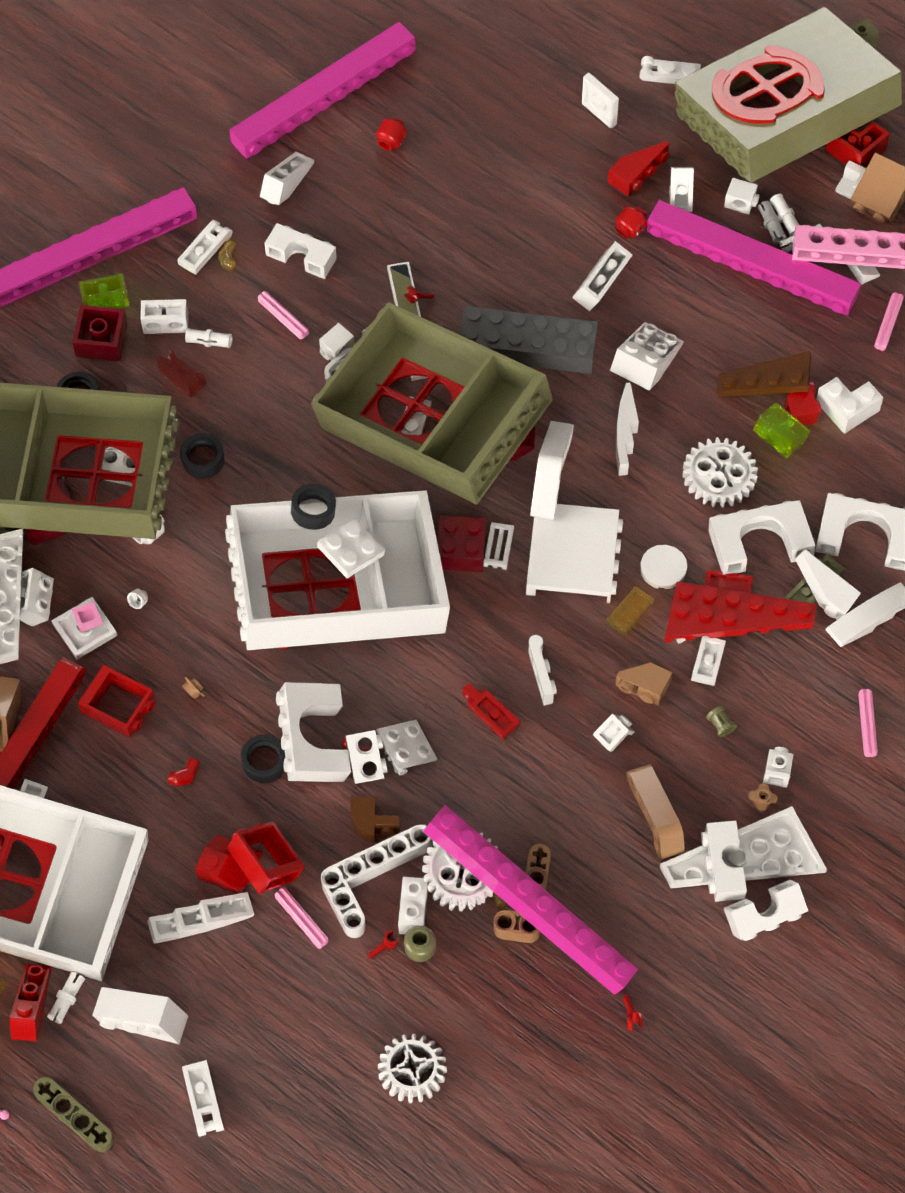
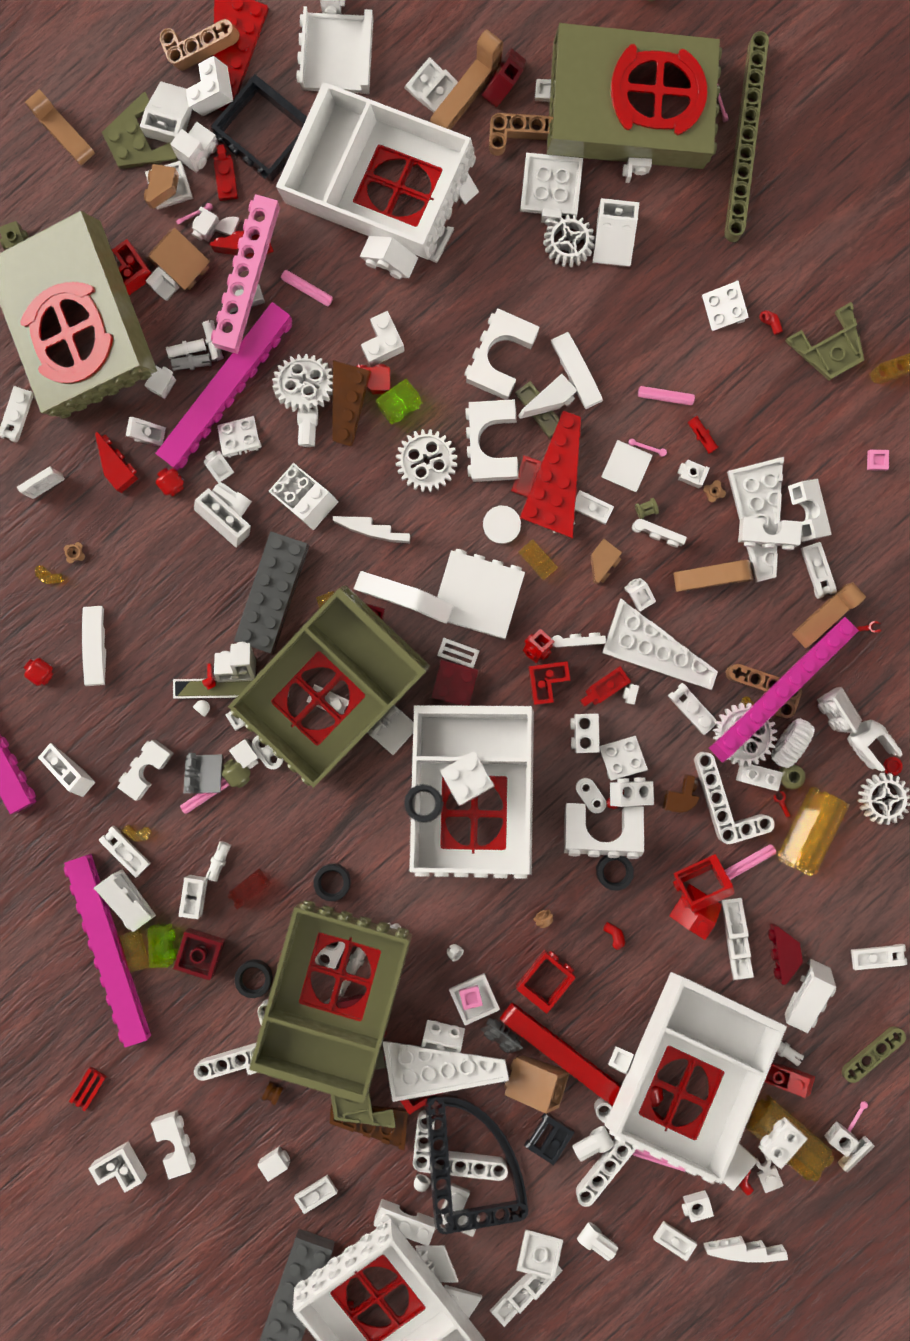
camera: 75 degrees left, 25 degrees up
(49, 657) = (507, 1043): none -> dark grey hinge
(92, 271) = (134, 950): none -> clear yellow plate
(104, 492) = (355, 962): none -> white pin
(151, 251) = (125, 900): none -> white wedge
(192, 976) = (786, 954): none -> dark red slope
(307, 304) = (203, 773): none -> hinge
(310, 337) = (235, 774): none -> olive head
(354, 977) = (813, 831): none -> clear yellow brick
(356, 719) = (591, 795): none -> white plate
(381, 294) = (202, 707): none -> white hinge
(394, 480) = (392, 729): none -> white hinge
(428, 179) = (93, 646): none -> white slope
(431, 703) = (591, 733): none -> white brick
(440, 309) = (235, 665): none -> white brick
(457, 1075) = (893, 765): none -> red plate
(463, 933) = (792, 743): none -> white gear
(482, 1014) = (865, 735): none -> white piece
(484, 634) = (541, 678): none -> red brick
(487, 740) = (630, 694): none -> white plate
(487, 816) = (693, 709): none -> white plate
(498, 126) = (46, 577): none -> clear yellow arm
(516, 983) = (840, 711): none -> white slope
(524, 623) = (538, 646): none -> red brick
(530, 142) = (69, 549): none -> medium nougat plate
(552, 748) = (648, 646): none -> white wing
(625, 287) = (234, 500): none -> white piece
(654, 969) = (832, 610): none -> medium nougat beam
(660, 265) = (218, 466): none -> white bracket
(693, 938) = (818, 569): none -> white plate
(694, 737) = (657, 533): none -> white plate
(698, 281) = (238, 436): none -> white hinge
(733, 345) = (307, 427): none -> white piece
(762, 330) = (303, 383): none -> white gear
(769, 691) = (626, 465): none -> white slope
(796, 732) = (662, 452): none -> bright pink hinge
(830, 772) = (703, 434): none -> red pin
(852, 987) = (878, 460): none -> bright pink plate

